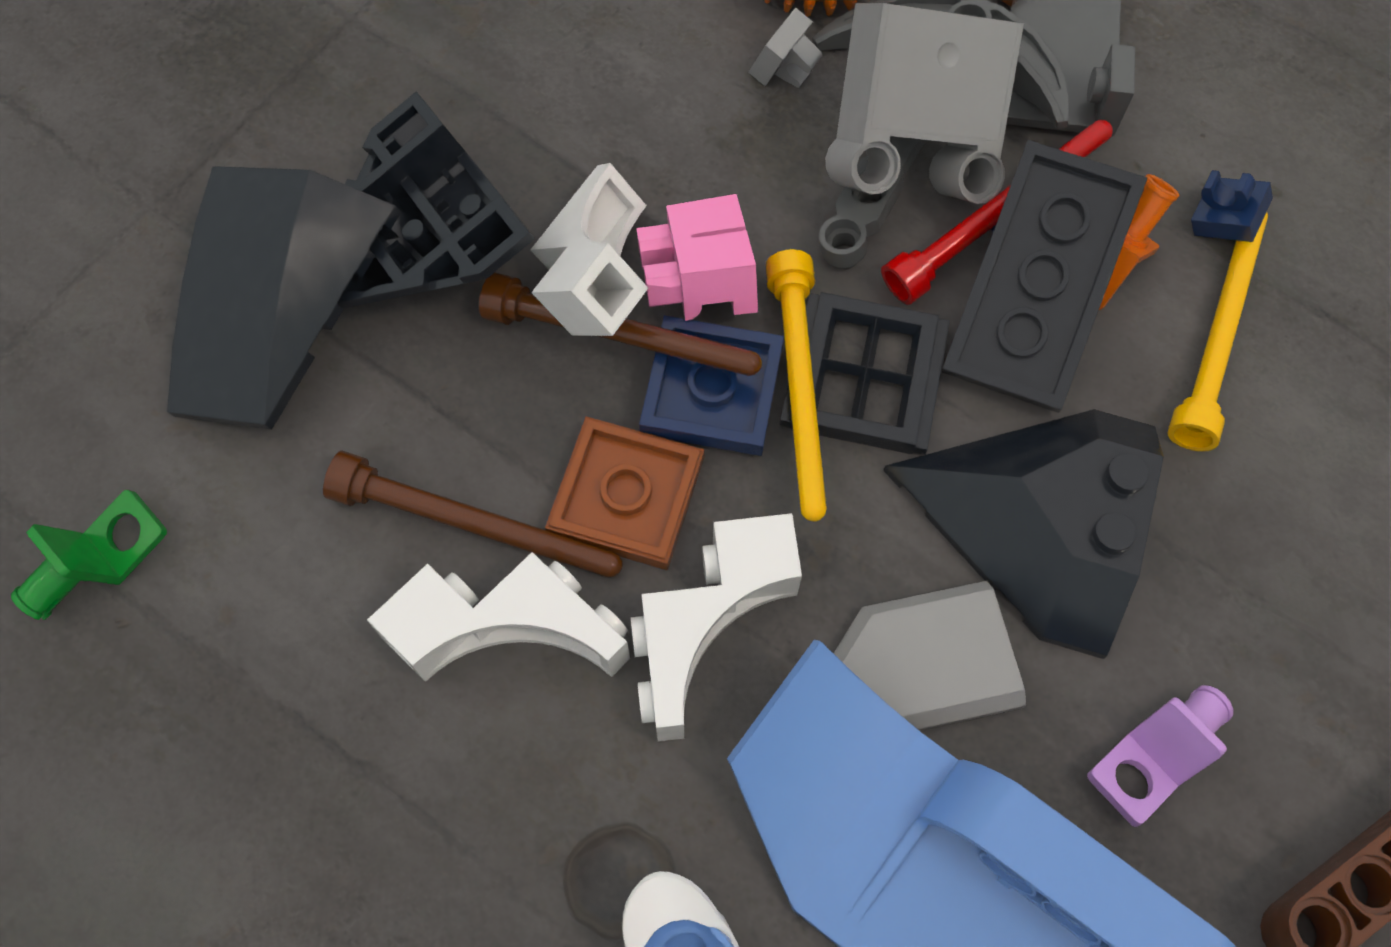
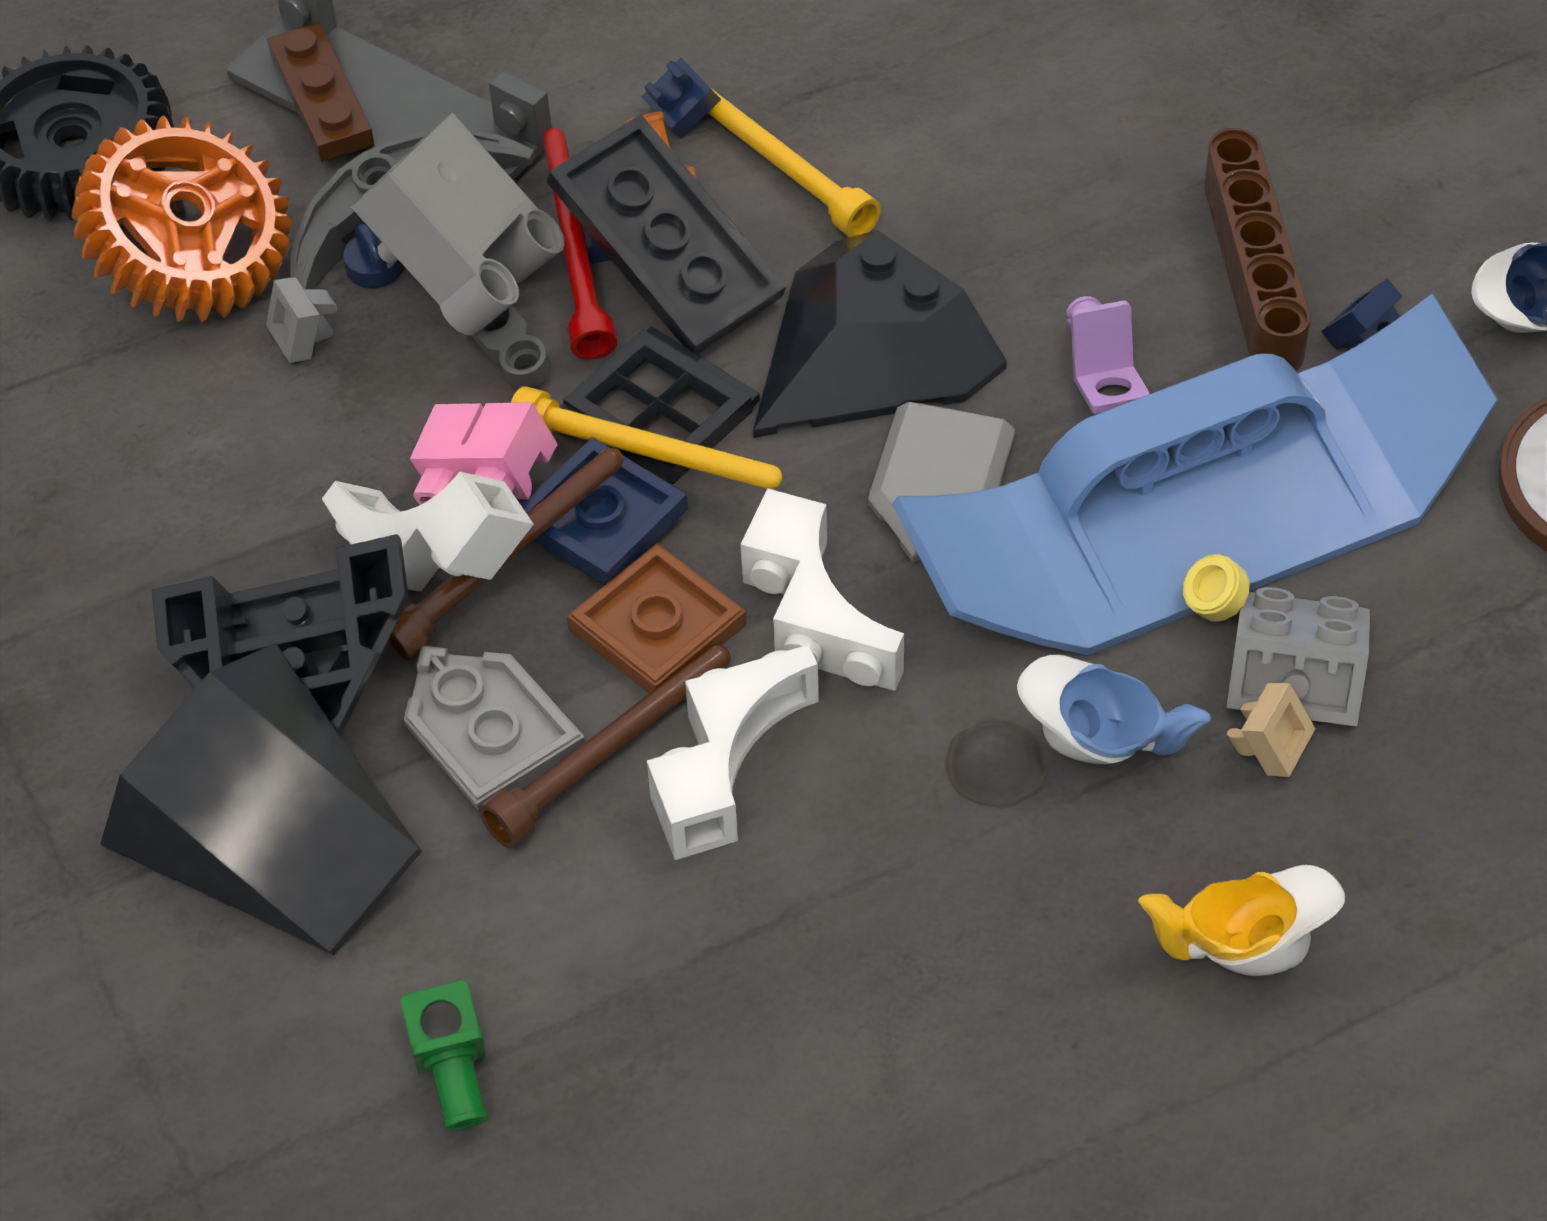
camera: 60 degrees left, 15 degrees down
(445, 411) = (486, 722): none -> light grey tile

